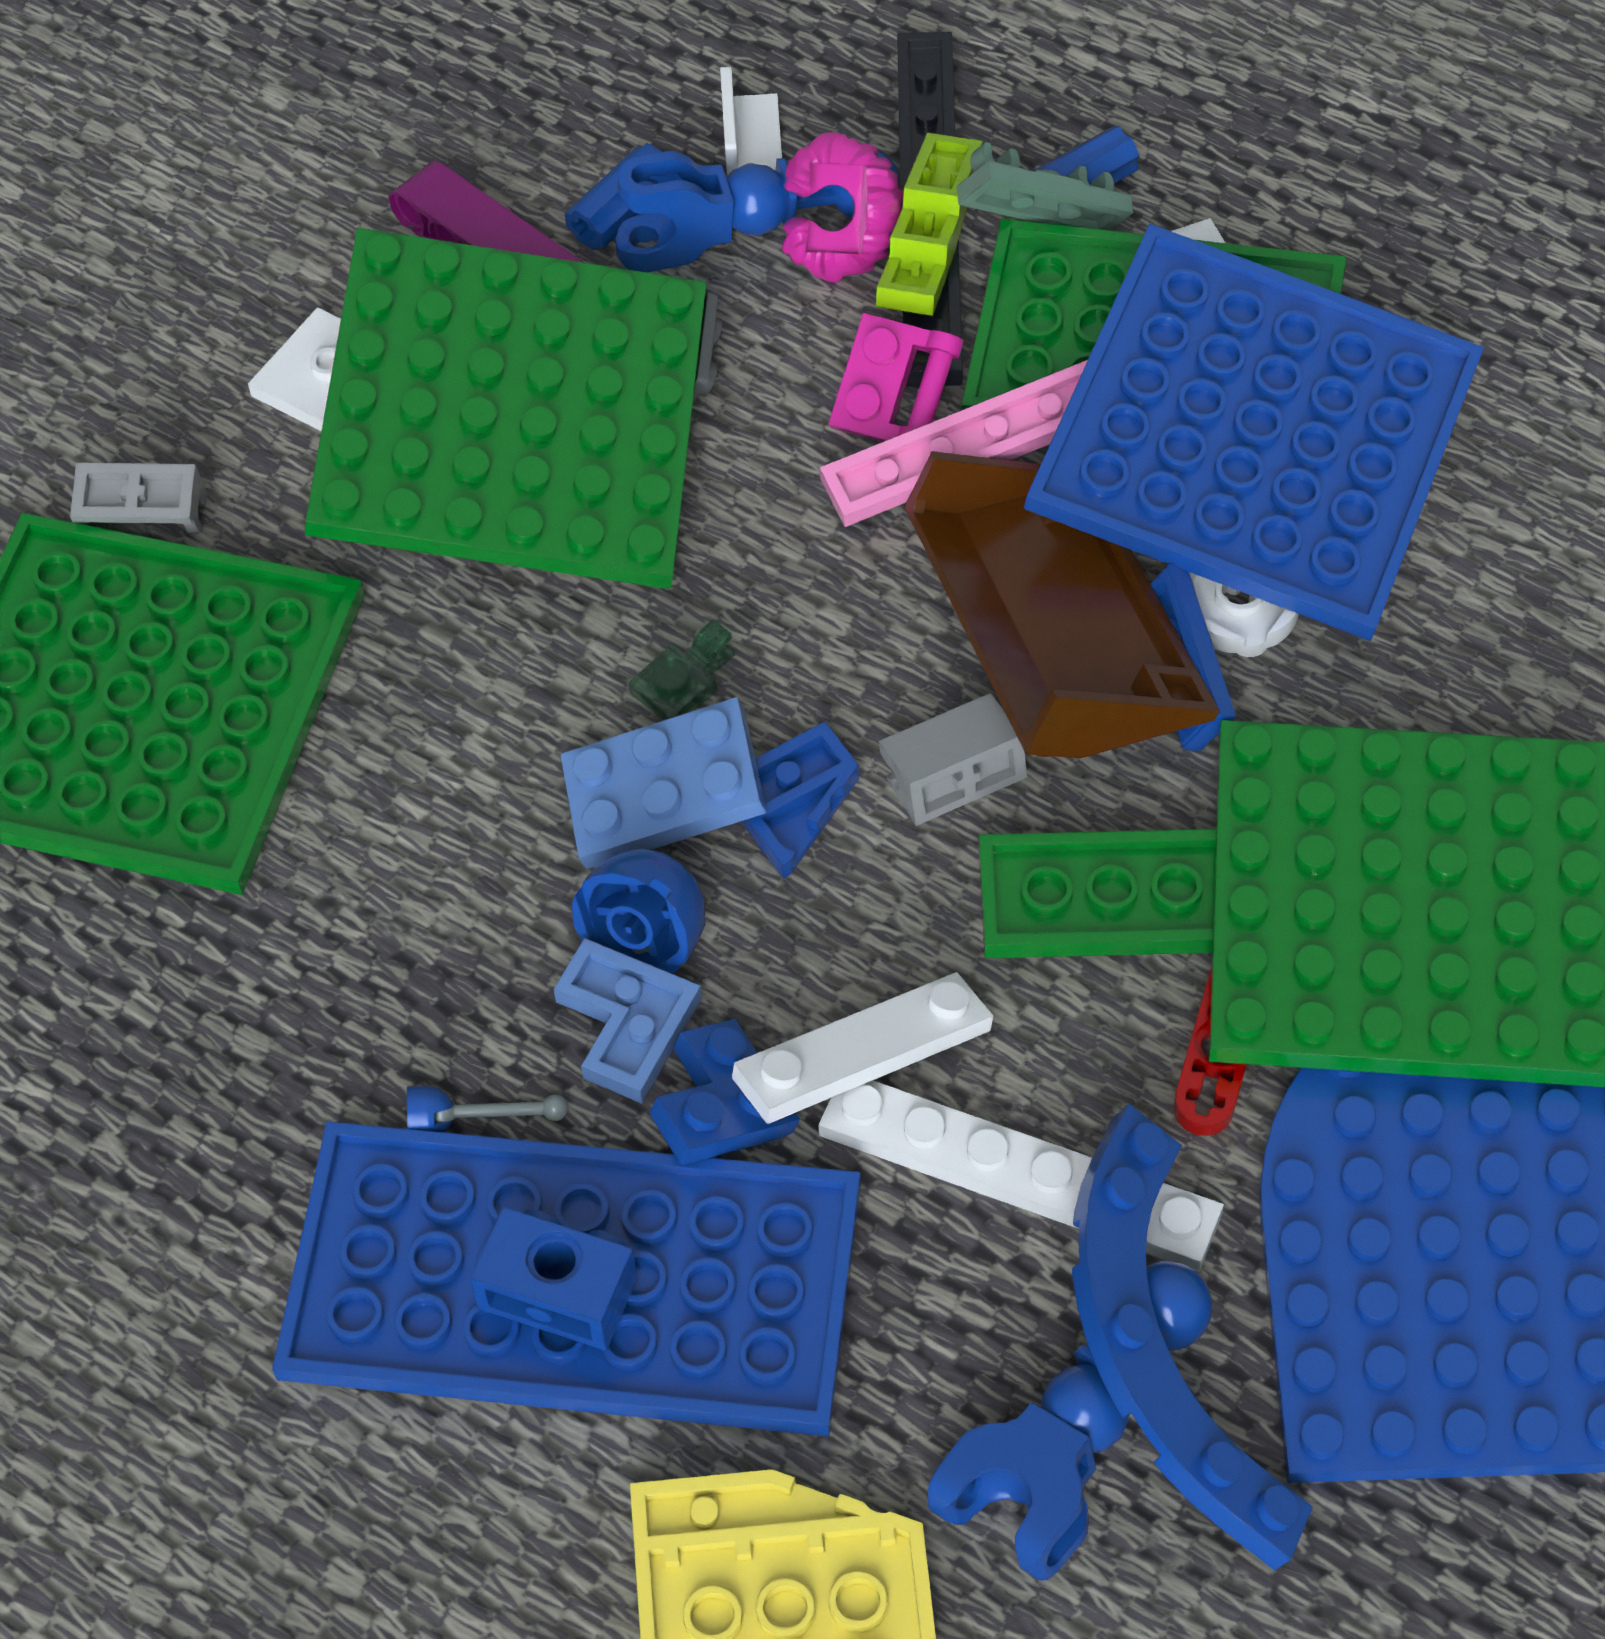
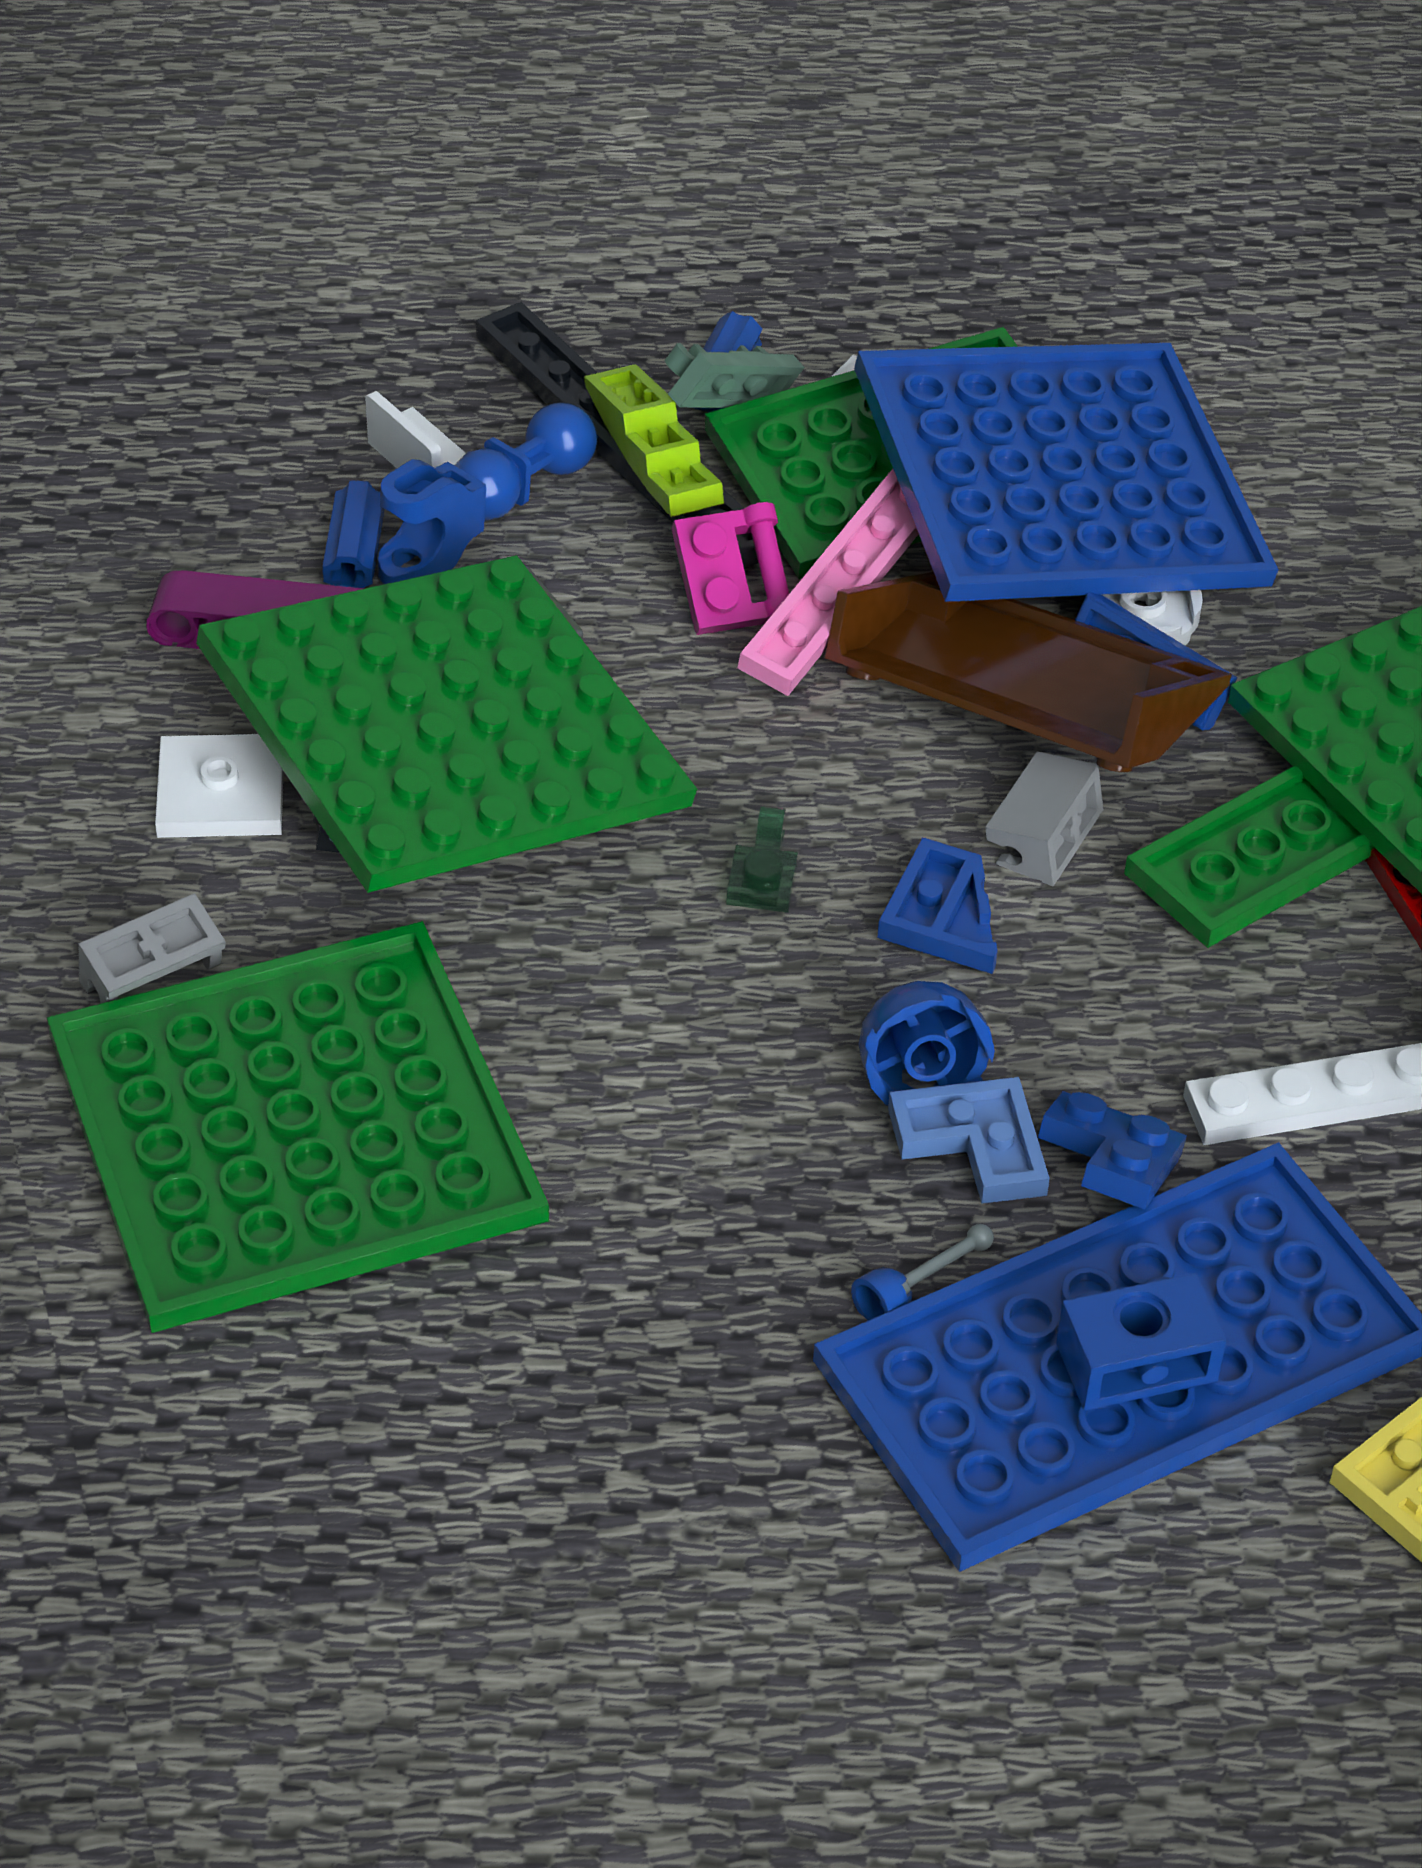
camera: 40 degrees left, 10 degrees down
(663, 782) = (837, 947): medium blue plate -> none
(861, 1047) = (1192, 1052): white plate -> none
(876, 199) = (602, 450): dark pink piece -> none

